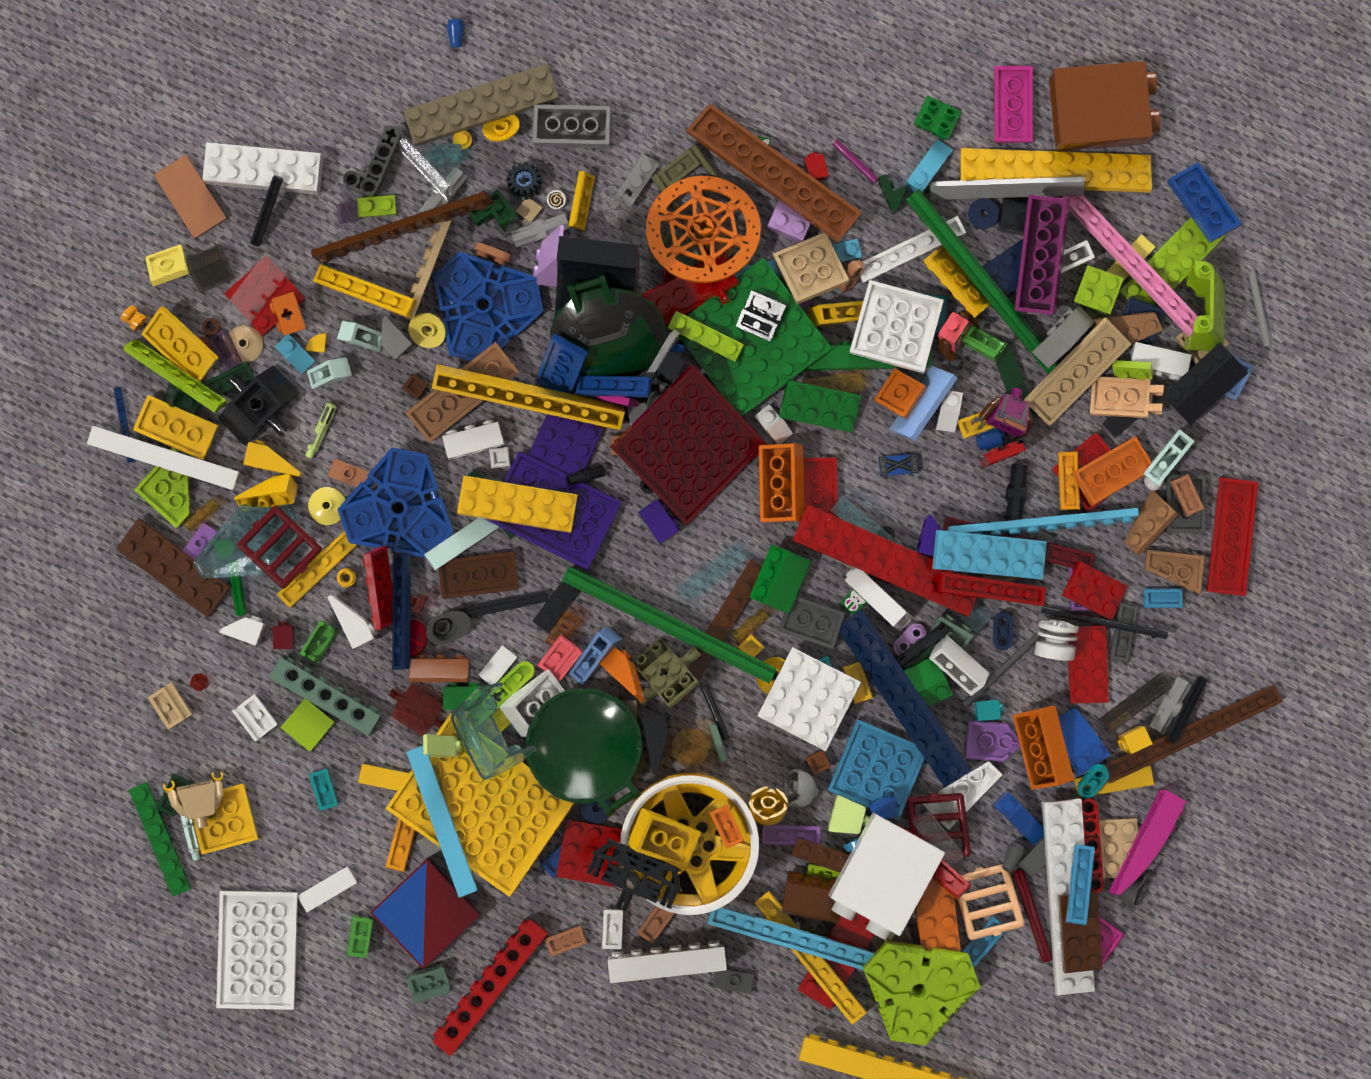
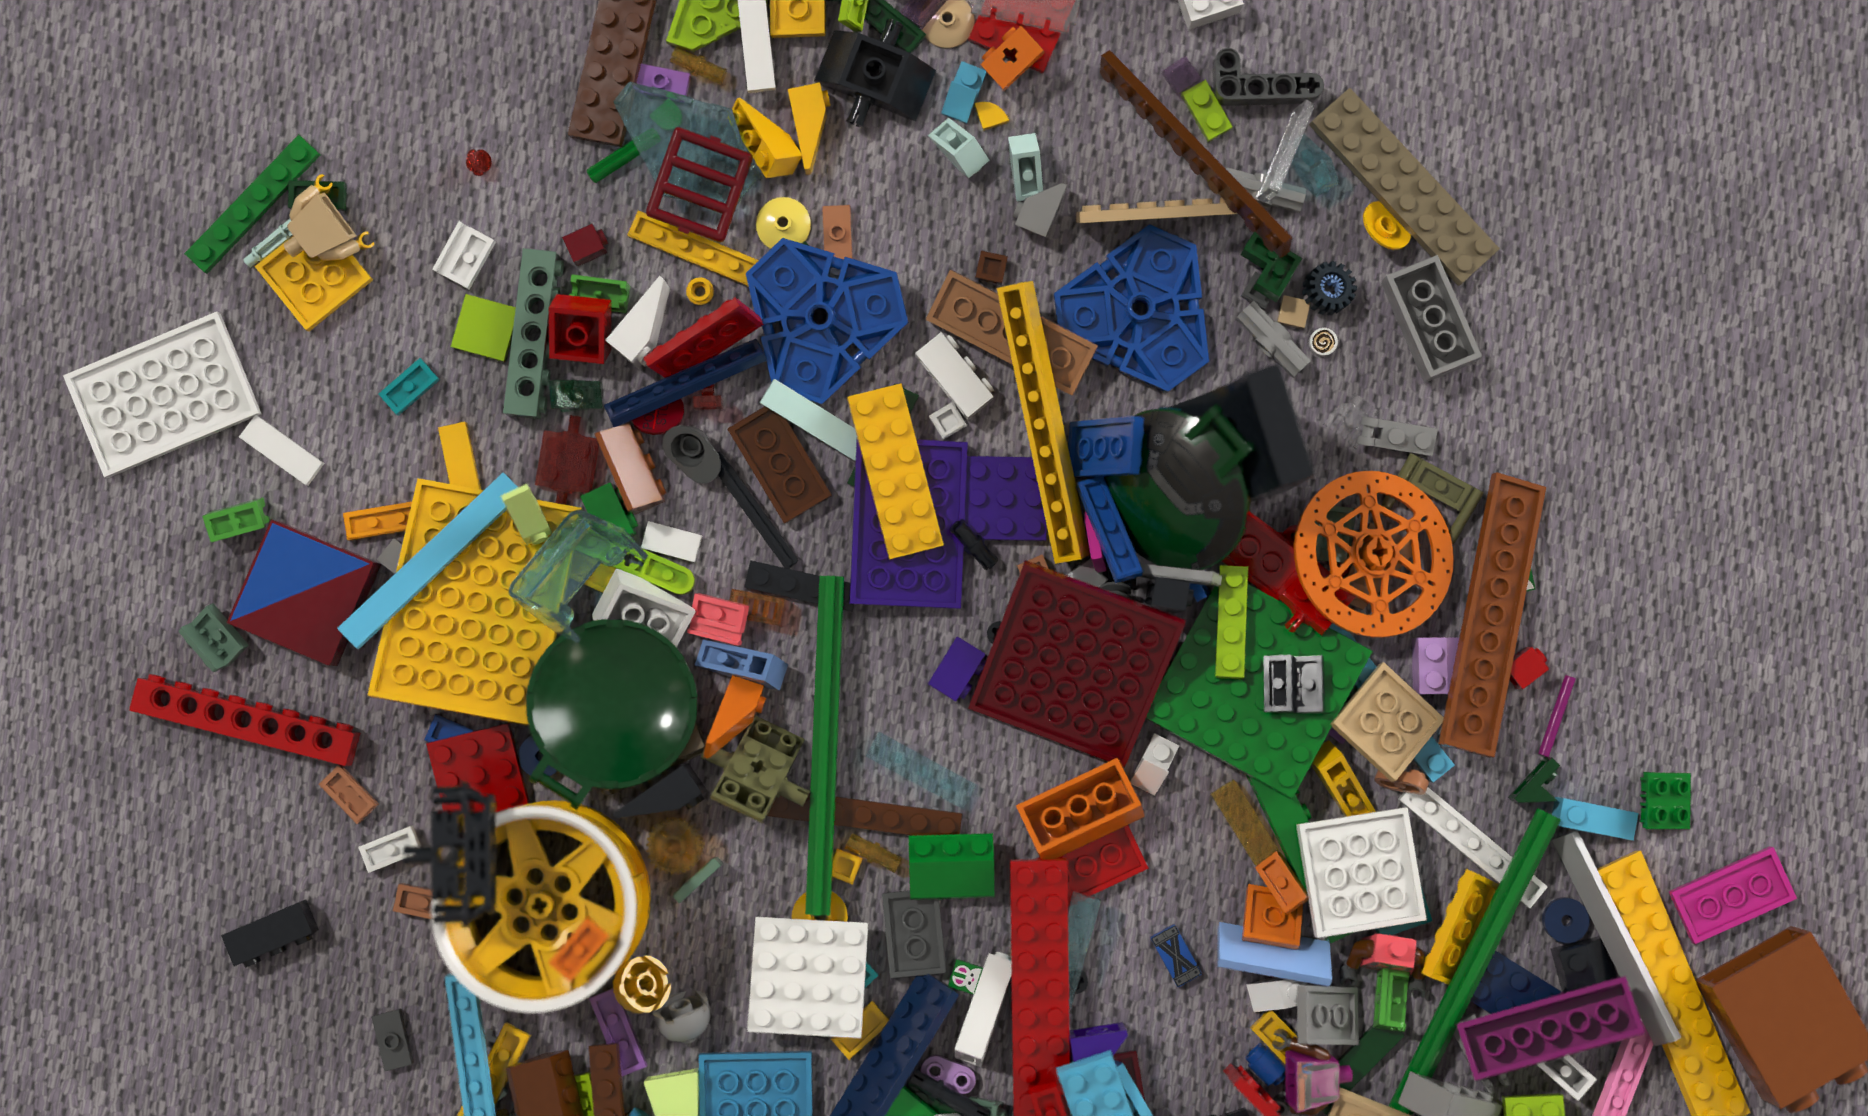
camera: 70 degrees right, 0 degrees up
(170, 706) = (431, 138): tan plate -> none
(246, 630) = (572, 192): white slope -> none
(320, 429) = (879, 171): yellowish green piece -> none
(337, 663) = (579, 328): none -> red brick
(364, 291) = (1087, 144): yellow tile -> none
(377, 685) = (575, 395): none -> clear green slope
(422, 335) = (1063, 249): light yellow dish -> none
(455, 32) = (1485, 109): blue cone -> none
(462, 138) = (1348, 183): yellow plate -> none
(499, 255) = (1214, 301): nougat plate -> none
(547, 267) = (1226, 369): lavender slope -> none
(581, 201) = (1337, 376): yellow tile -> none
(632, 1028) = (270, 934): none -> black brick
(663, 838) = (524, 870): yellow slope -> none
(667, 962) = (375, 942): white brick -> none
(715, 712) = (736, 857): black bar -> none
(818, 762) = (730, 1024): dark orange plate -> none
(819, 405) = (1207, 815): green plate -> none
(881, 378) = (1282, 882): none -> orange plate
(975, 387) = (1327, 1015): none -> light grey plate

